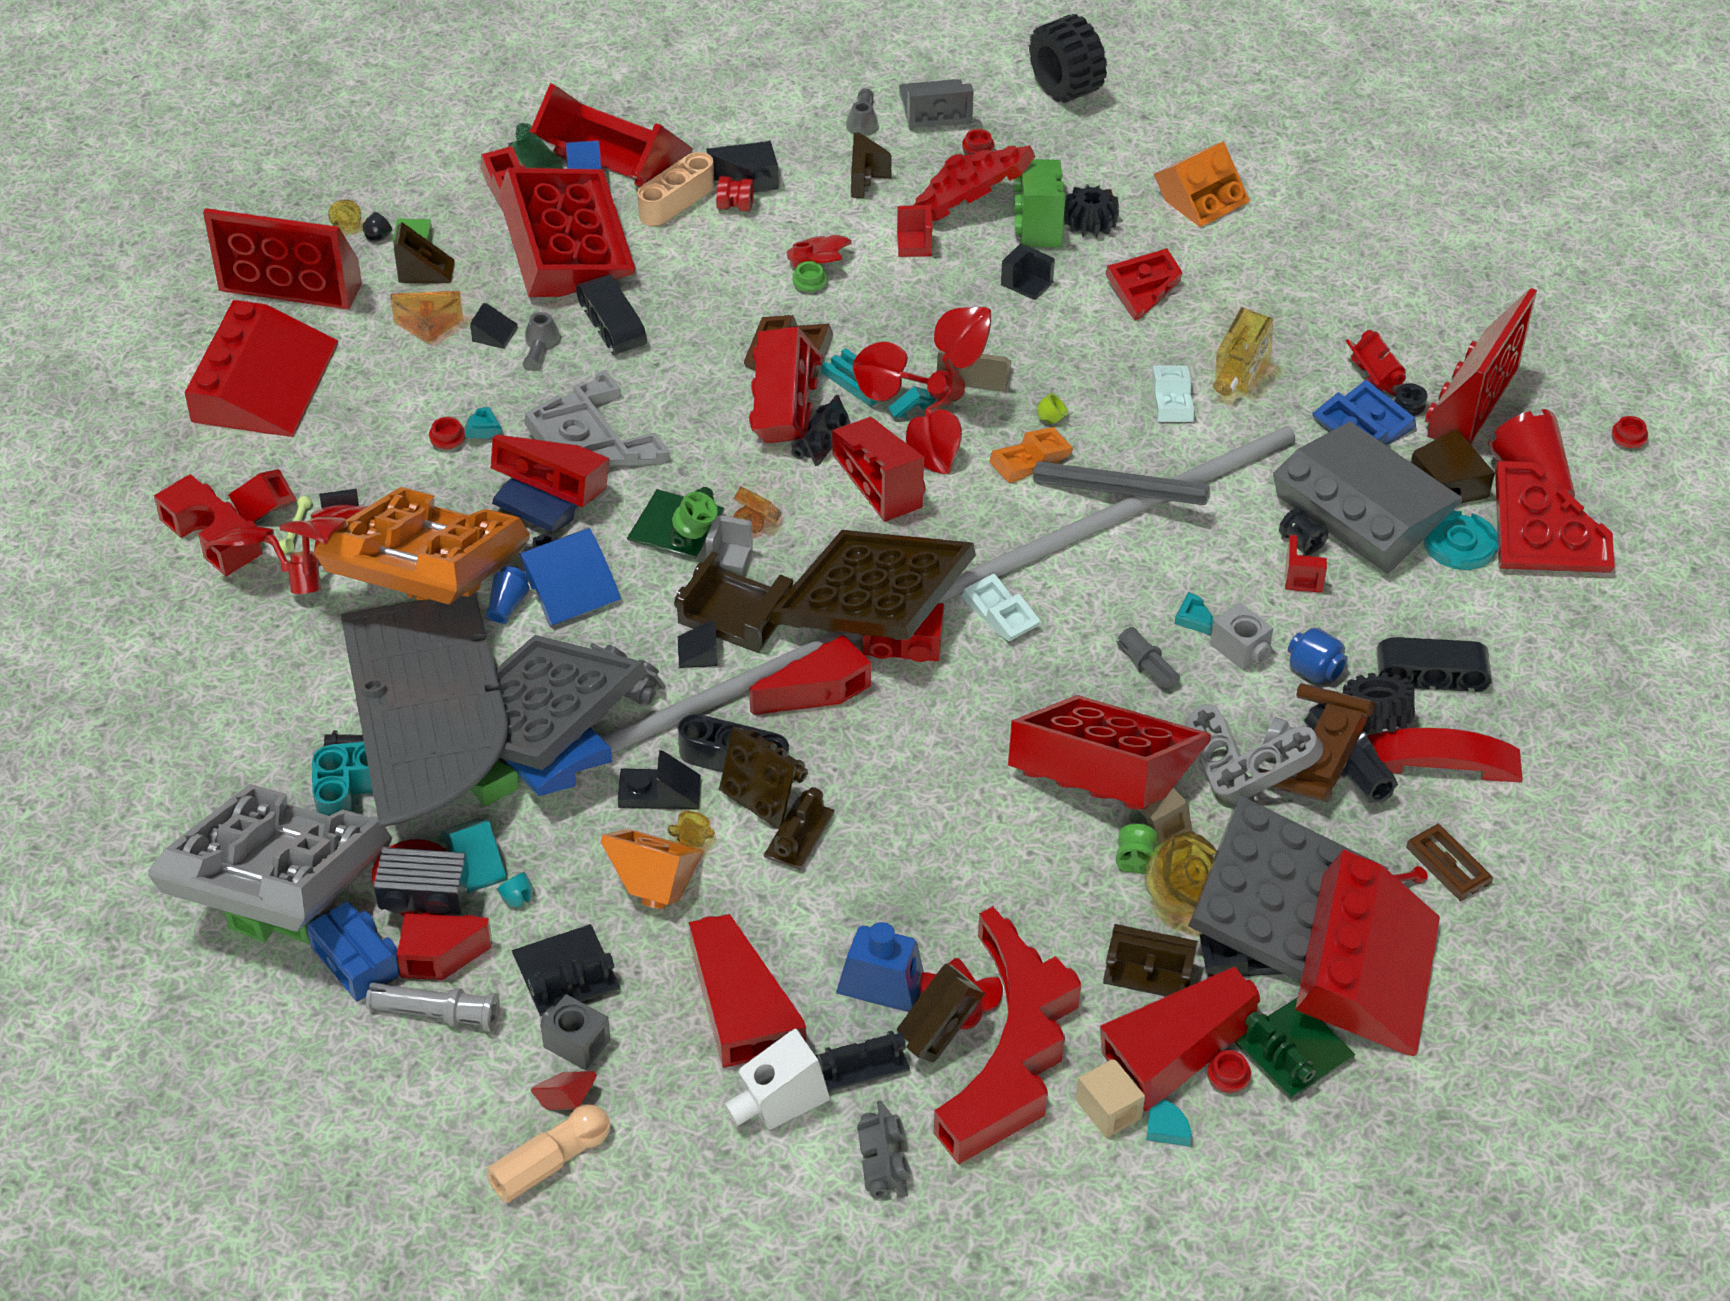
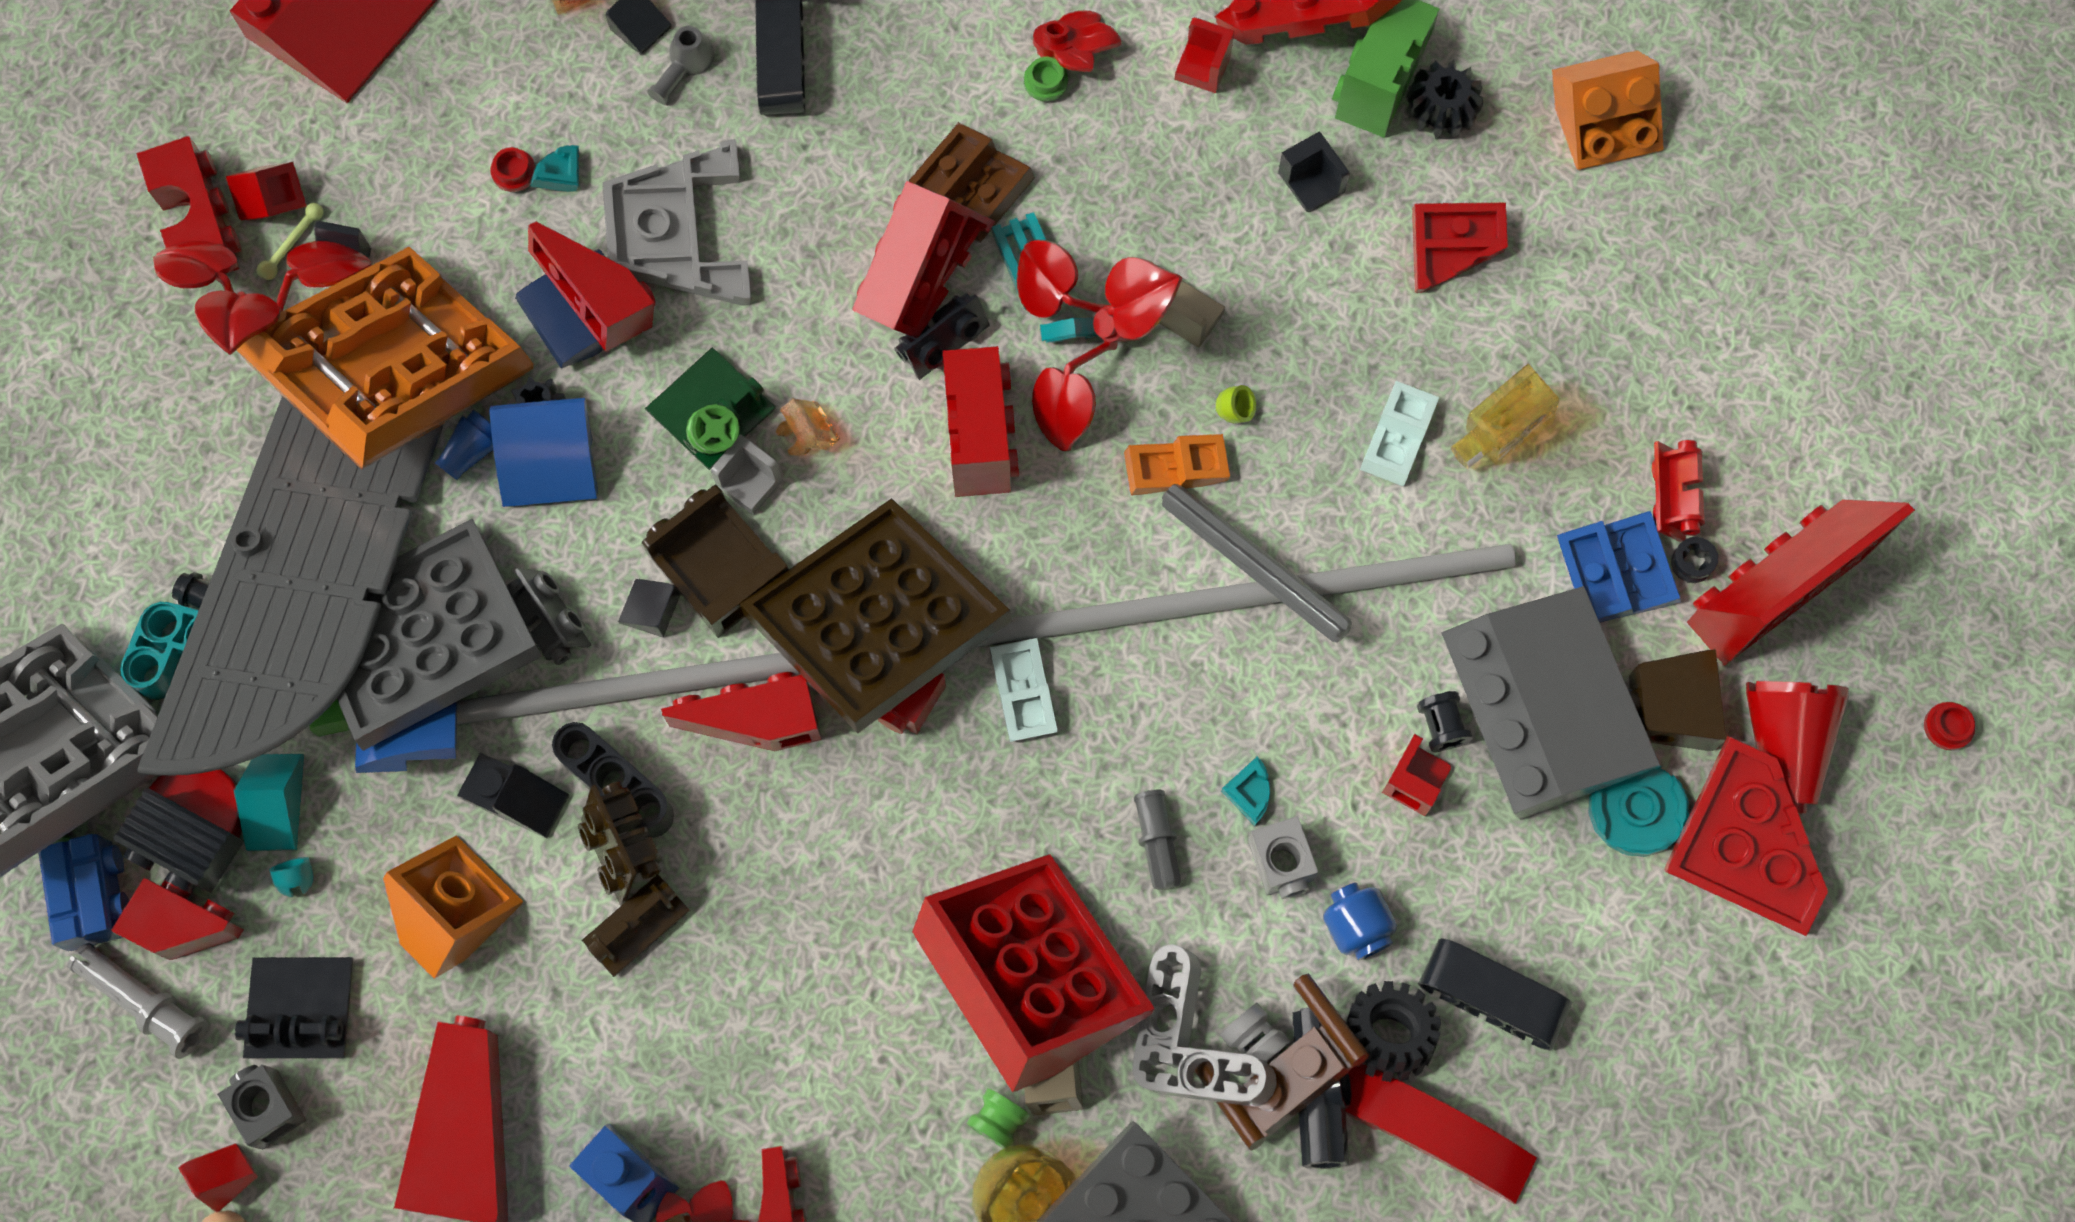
camera: 25 degrees right, 25 degrees up
(691, 829) = (518, 861): clear yellow plate -> none

